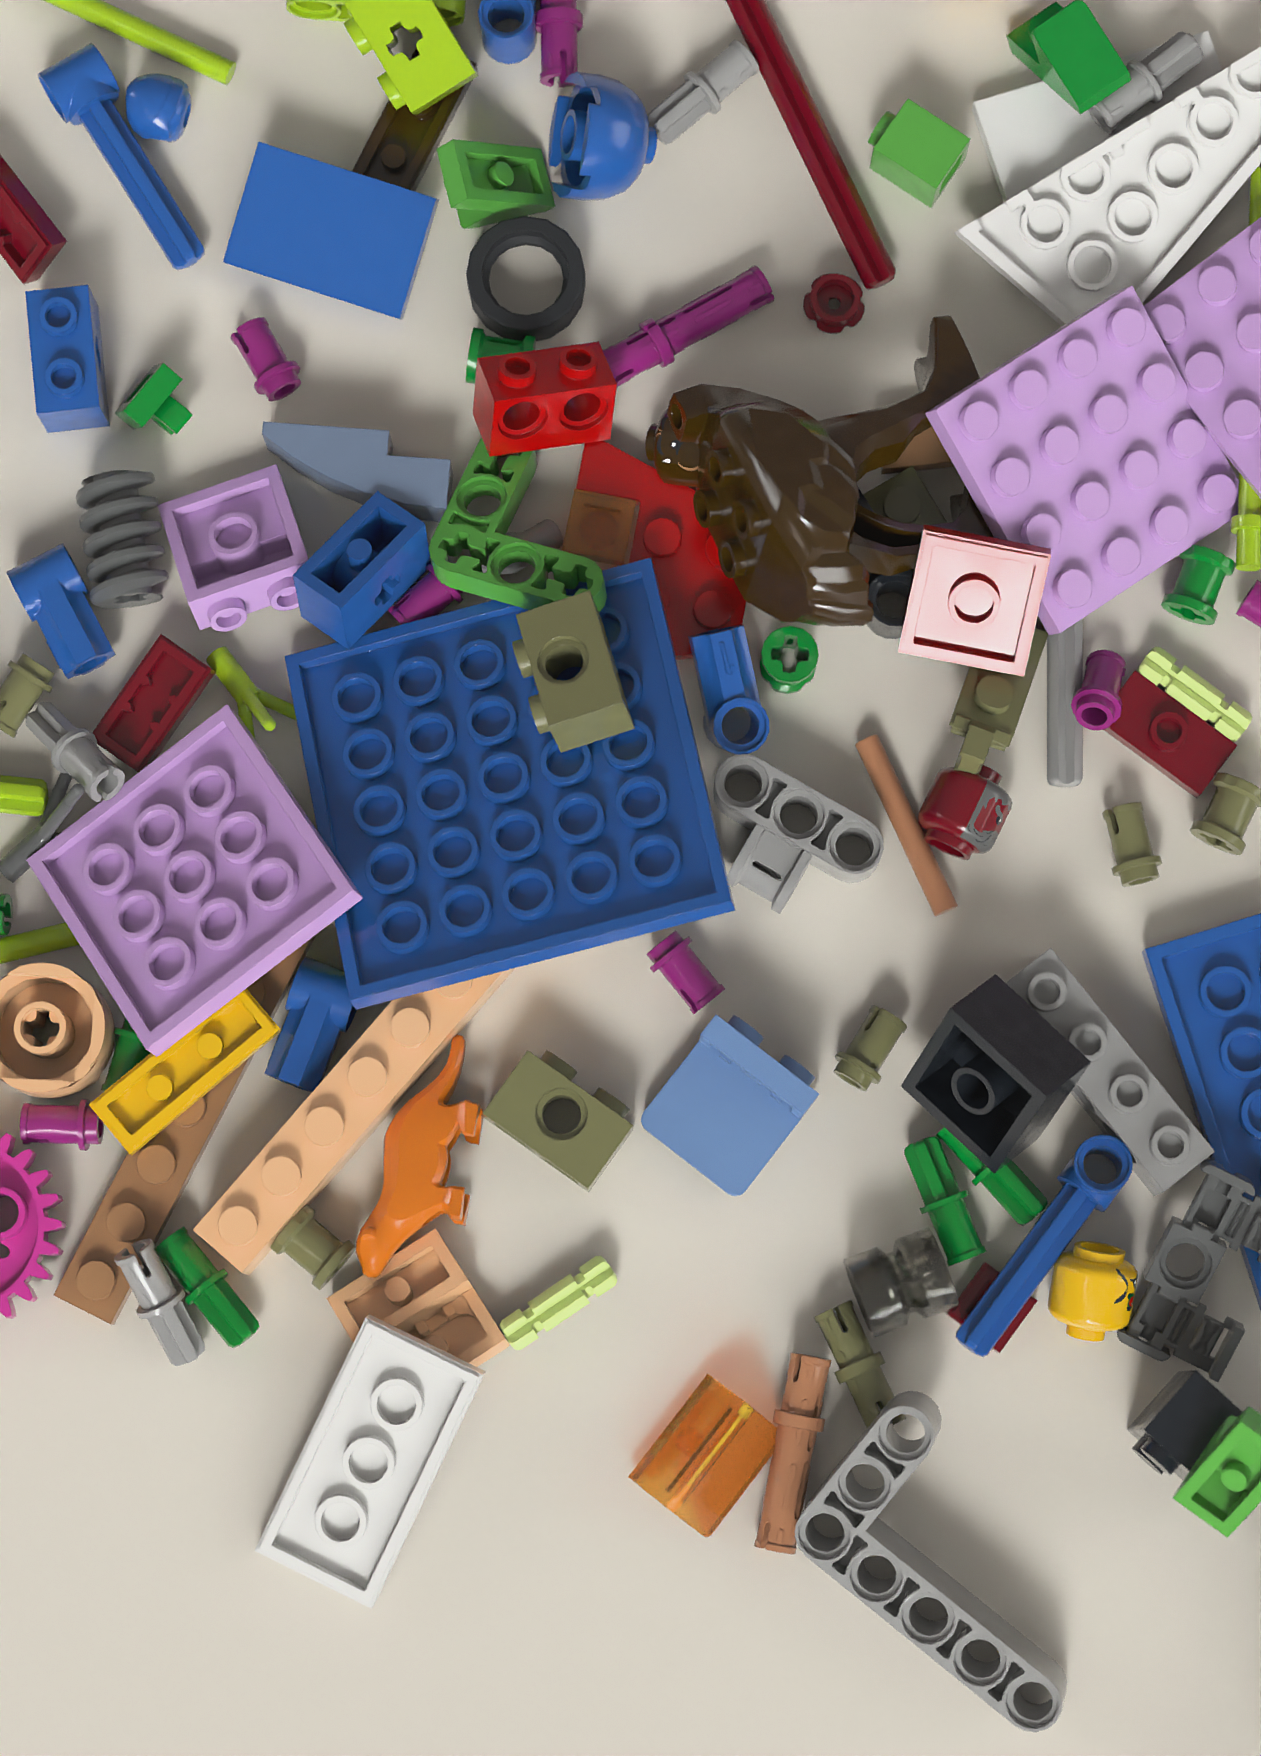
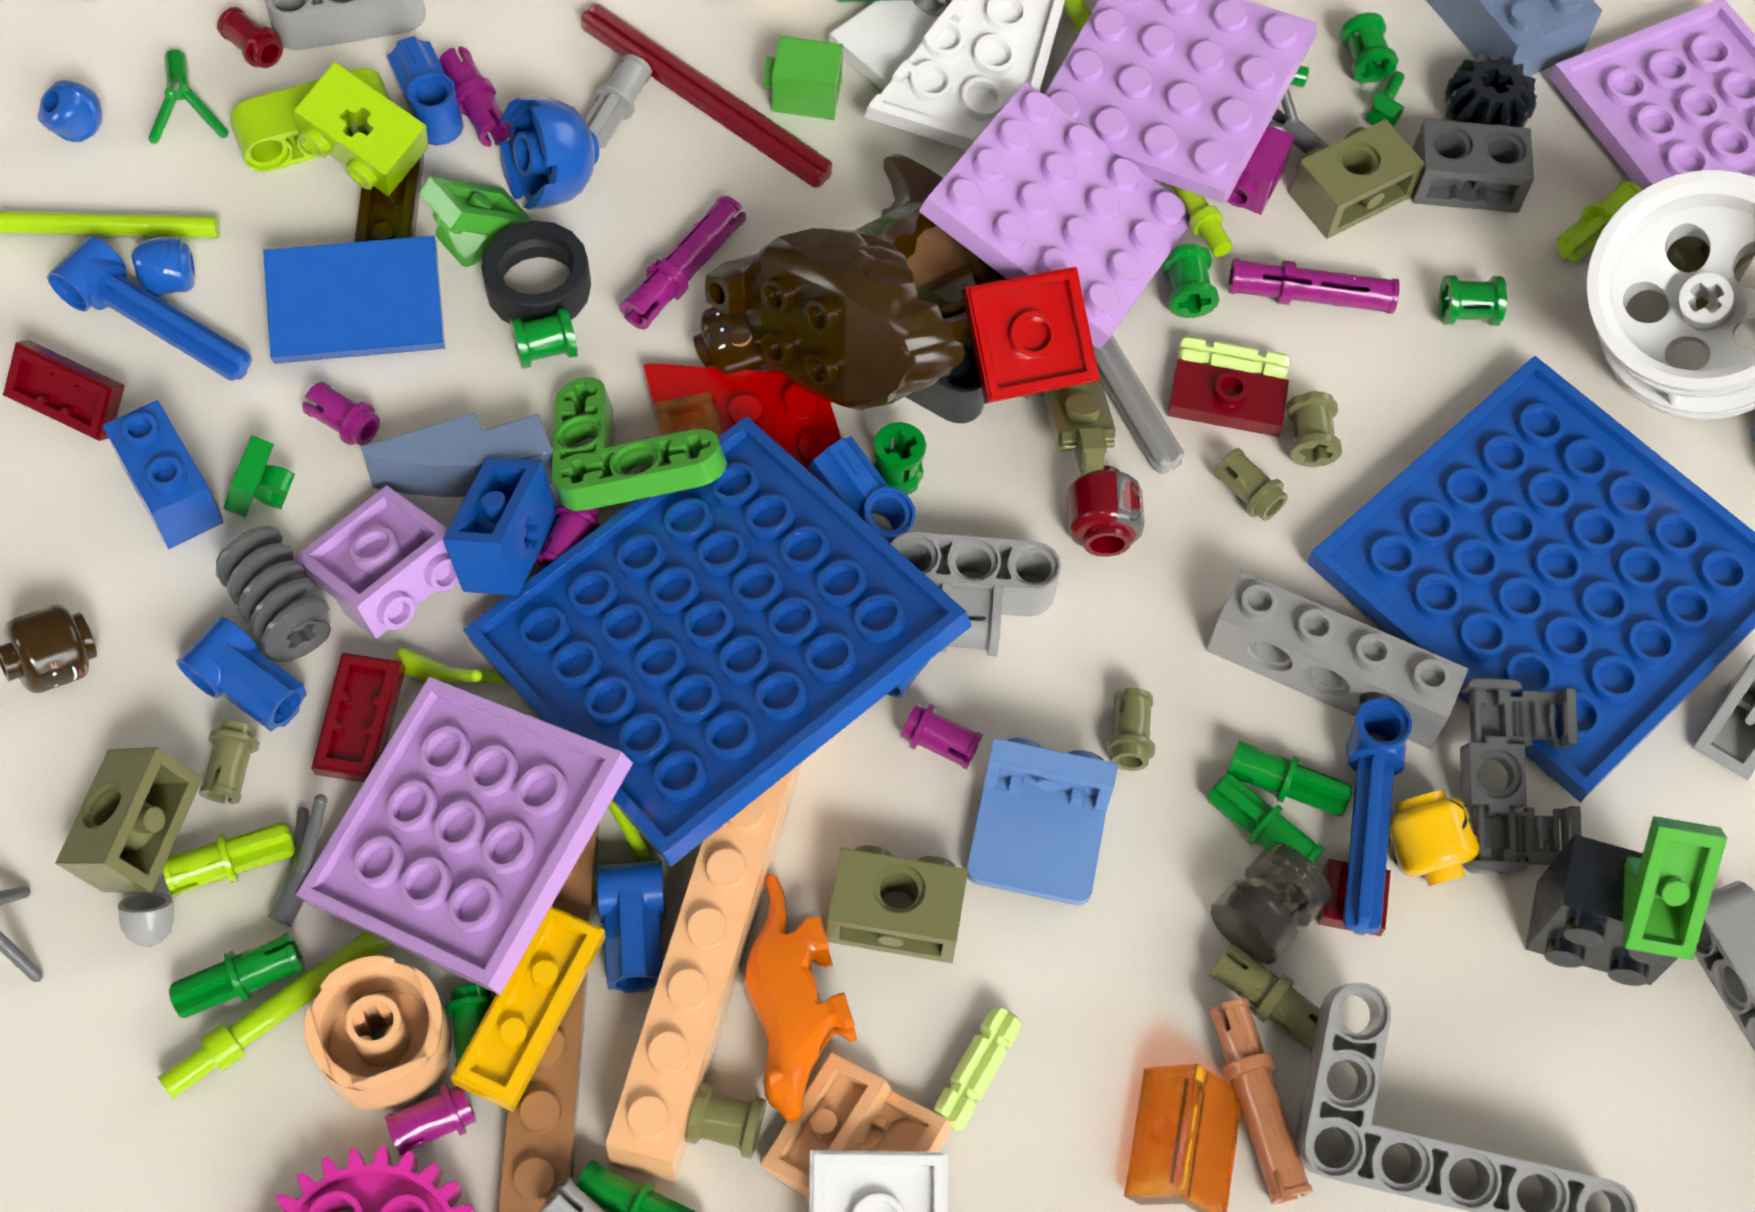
camera: 30 degrees left, 20 degrees down
(75, 752) = (303, 780): light grey axle -> none
(544, 398) = (609, 338): red brick -> none
(565, 637) = (730, 509): olive brick -> none
(837, 287) = (795, 190): dark red plate -> none
(906, 825) = (1068, 551): nougat bar -> none
(995, 1073) = (1255, 684): black brick -> none
(1098, 701) = (1163, 384): magenta pin -> none

